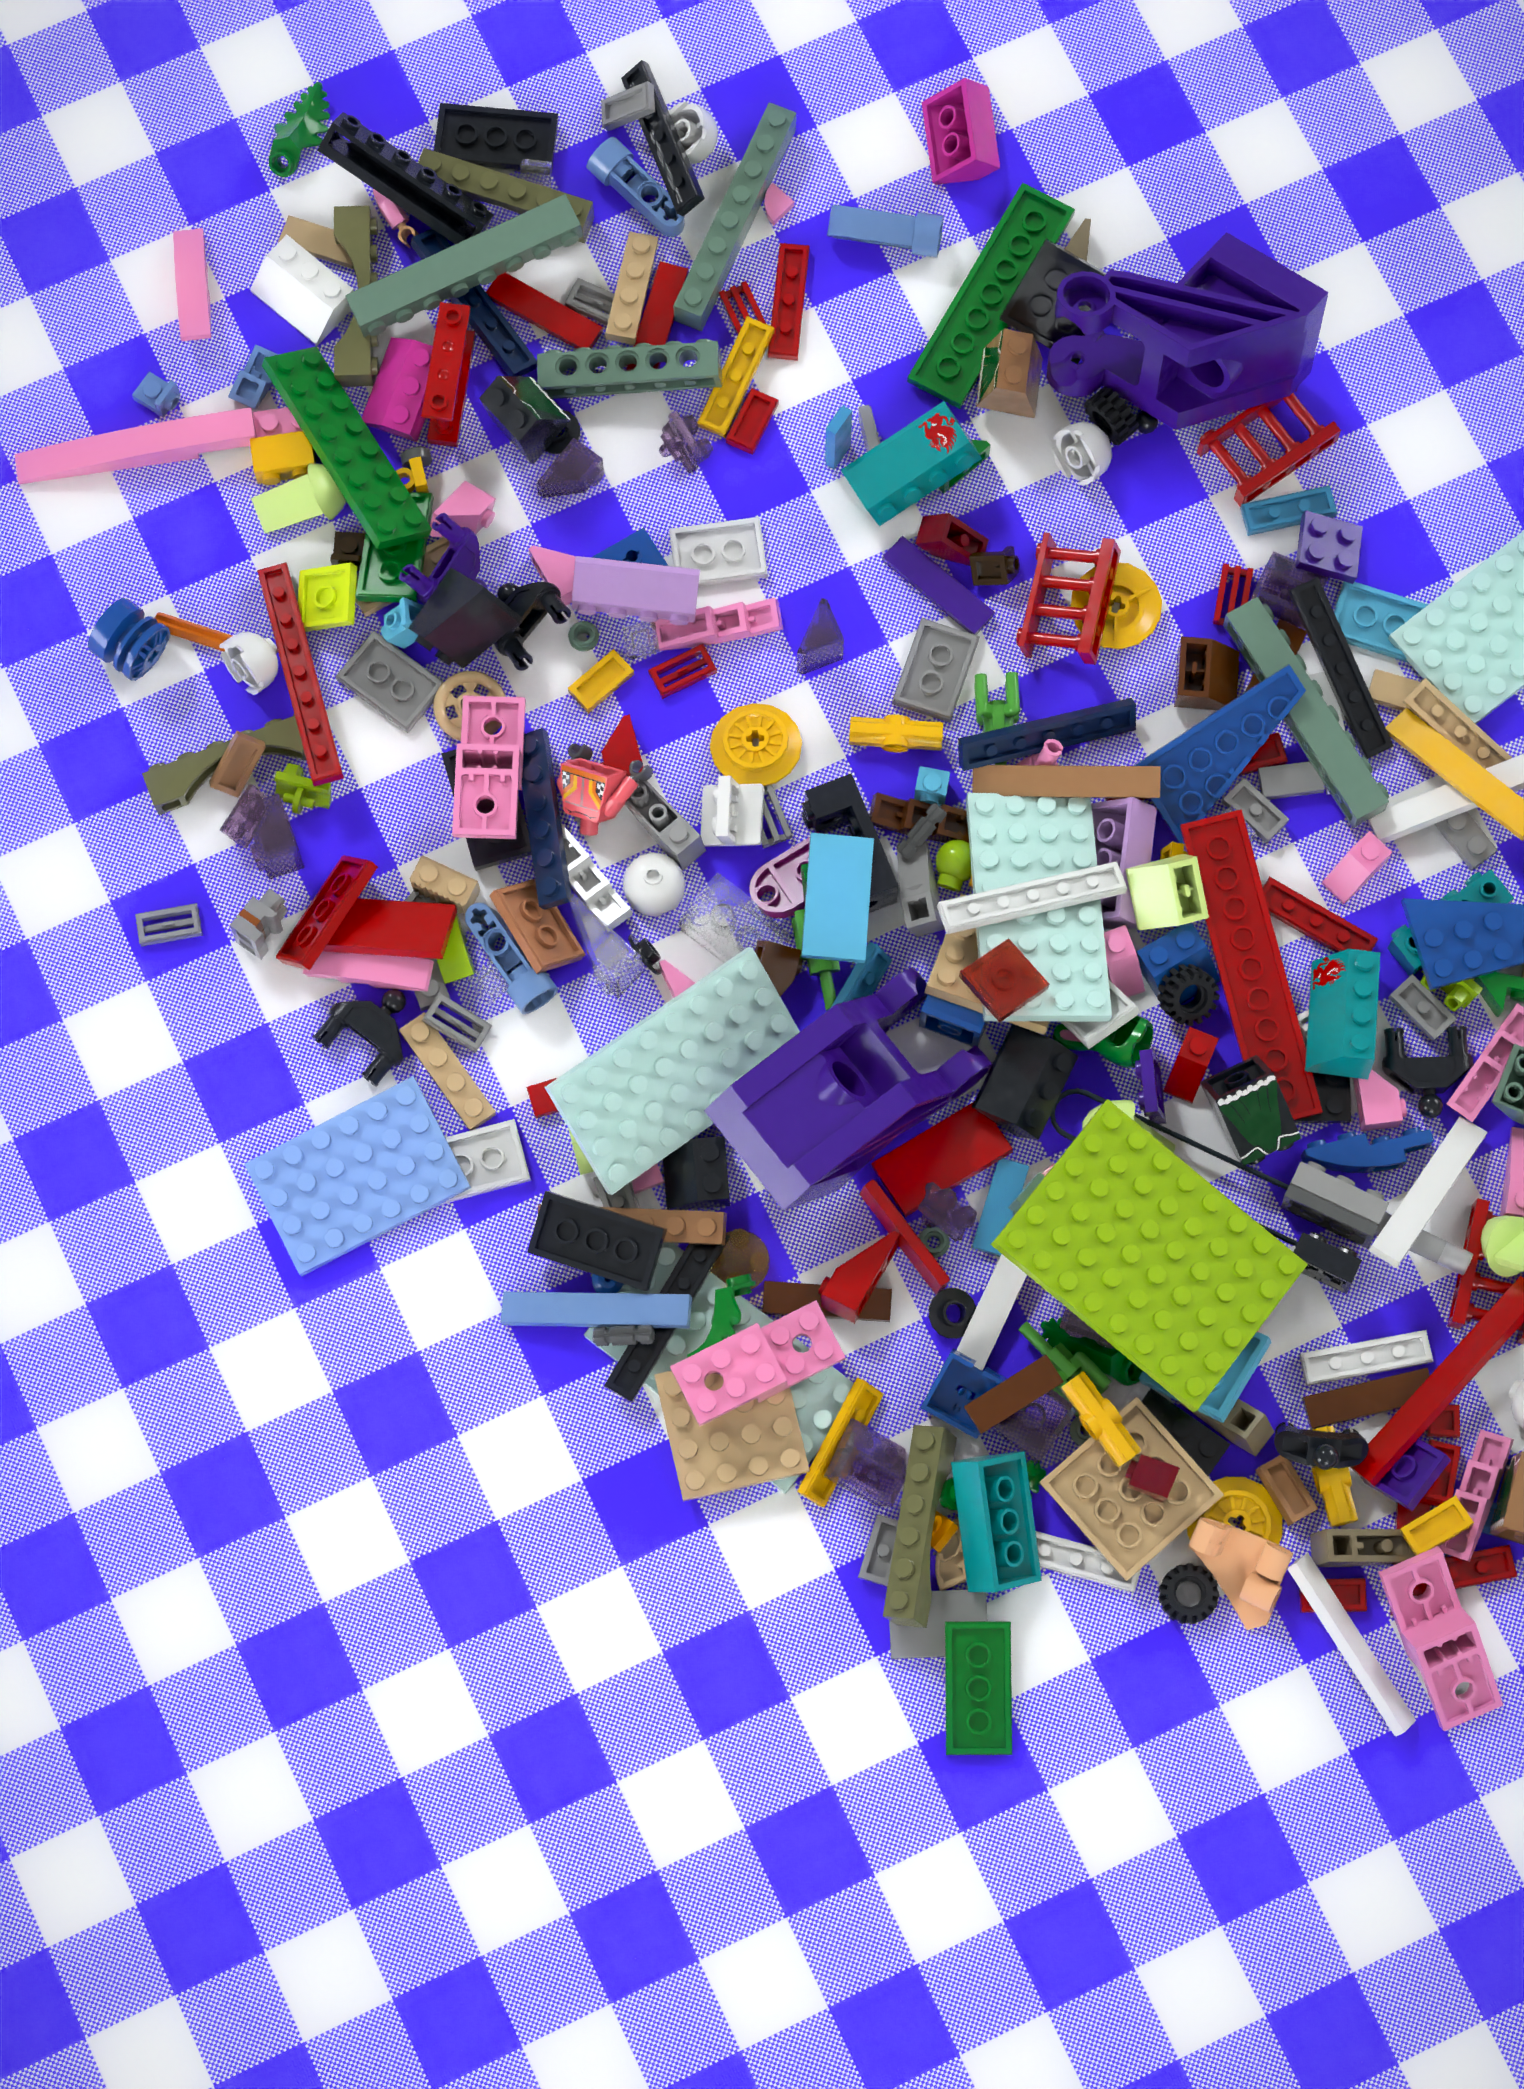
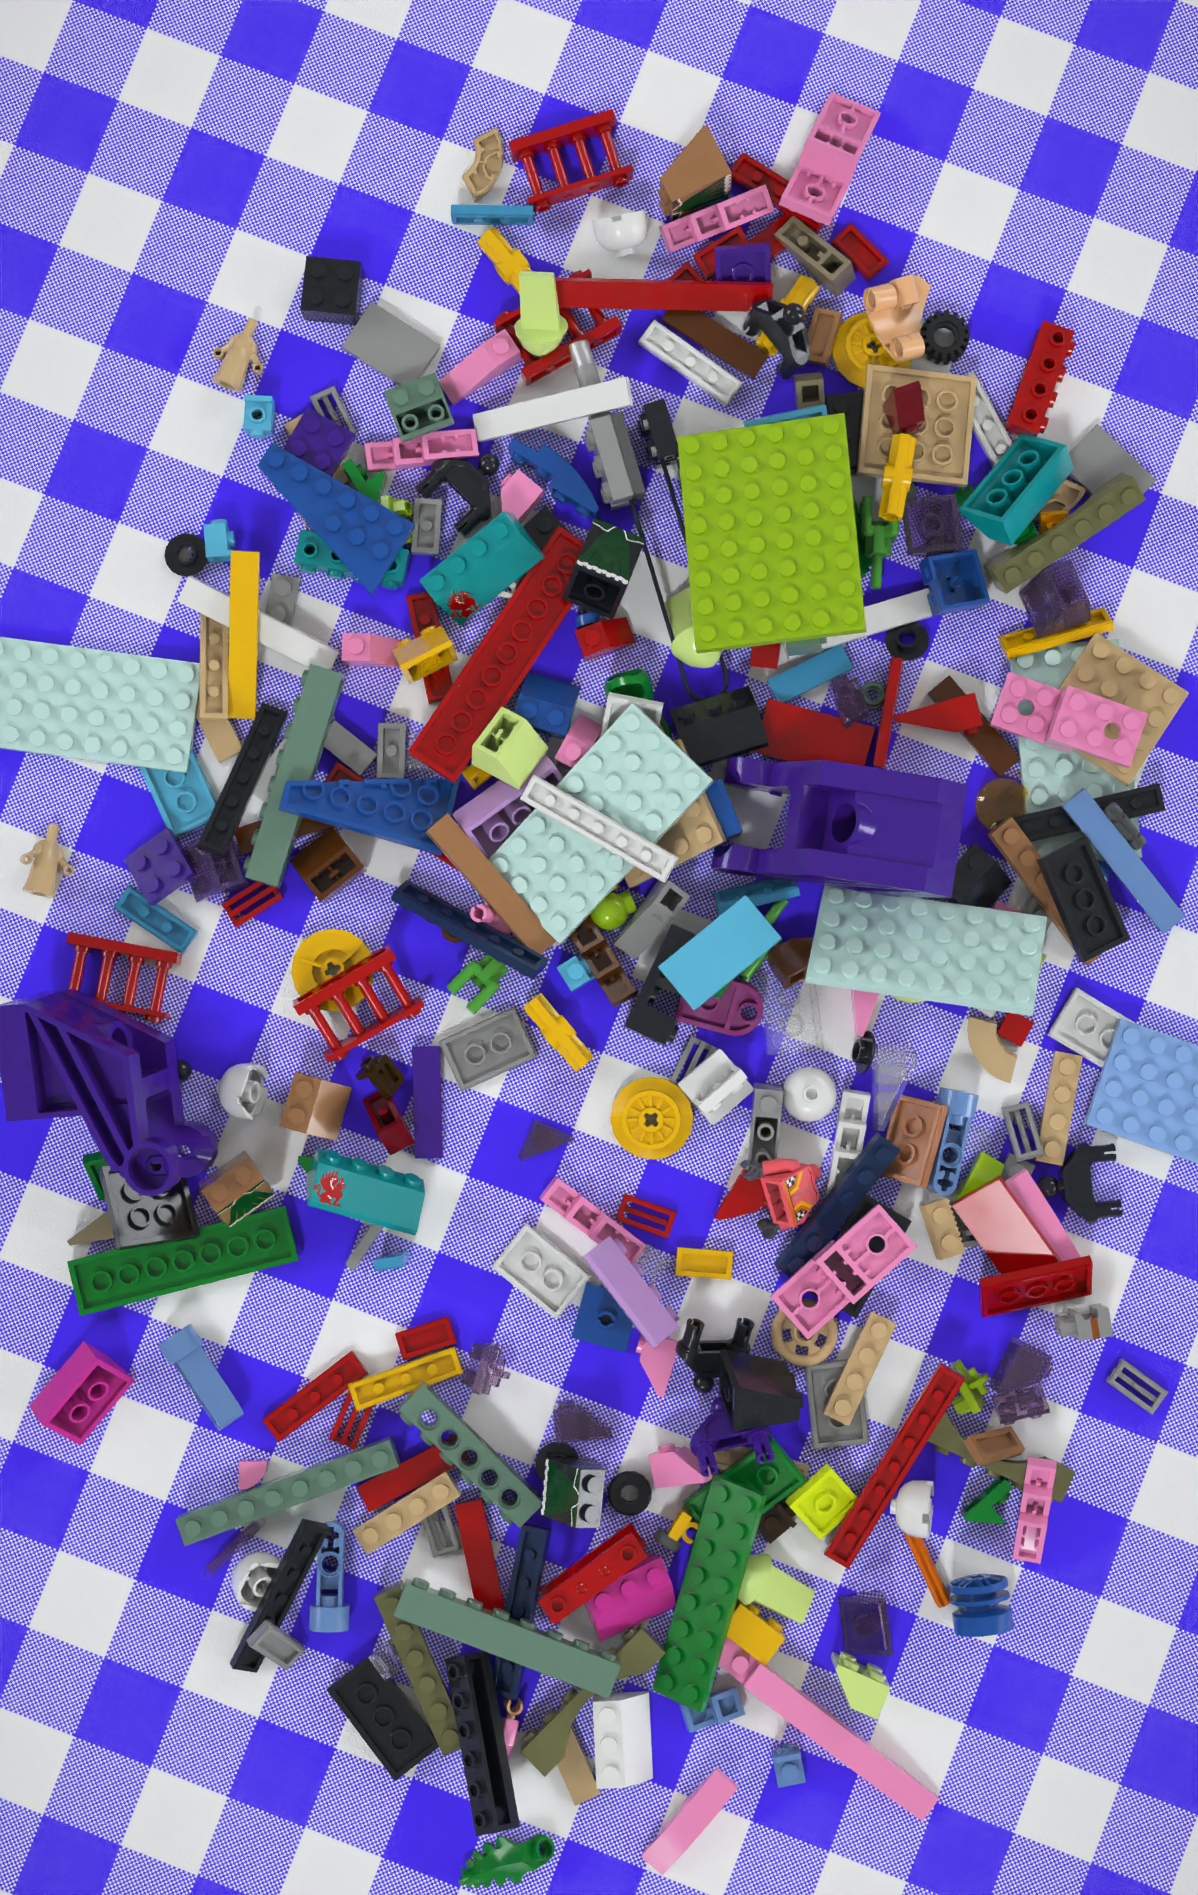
camera: 135 degrees left, 10 degrees up
(157, 747) = (1034, 1509): none -> bright pink slope
(165, 494) = (863, 1685): none -> yellowish green slope
(195, 714) = (981, 1507): none -> green slope
(201, 548) = (866, 1623): none -> clear purple slope
(397, 623) = (798, 1435): medium azure brick -> none
(400, 720) = (859, 1368): none -> tan plate
(477, 450) = (635, 1506): none -> black piece
(543, 1058) = (989, 1050): none -> tan tile
(580, 628) = (693, 1308): sand green plate -> none
(726, 1310) = (1053, 773): green plant -> none
(736, 141) = (232, 1549): none -> medium lavender piece
(879, 1551) = (1098, 546): light grey plate -> none
(921, 831) = (613, 950): dark grey axle -> none
(978, 1688) = (1123, 411): green tile -> none
(1004, 980) = (677, 789): clear red tile -> none
(1013, 1394) = (932, 545): reddish brown tile -> none
(1018, 496) = (315, 1106): none -> medium nougat slope
(1074, 1639) = (1039, 379): none -> red brick
(1111, 415) = (200, 1095): black tyre -> none
(1151, 1098) = (640, 652): dark purple plate -> none
(1177, 984) = (558, 688): black tyre -> none
(1217, 1064) = (587, 619): none -> blue tile
(1313, 898) = (425, 654): none -> yellow slope
(1351, 1644) = (883, 210): white tile -> none
(1419, 470) = (43, 872): none -> tan piece
(1437, 1526) = (763, 219): yellow tile -> none

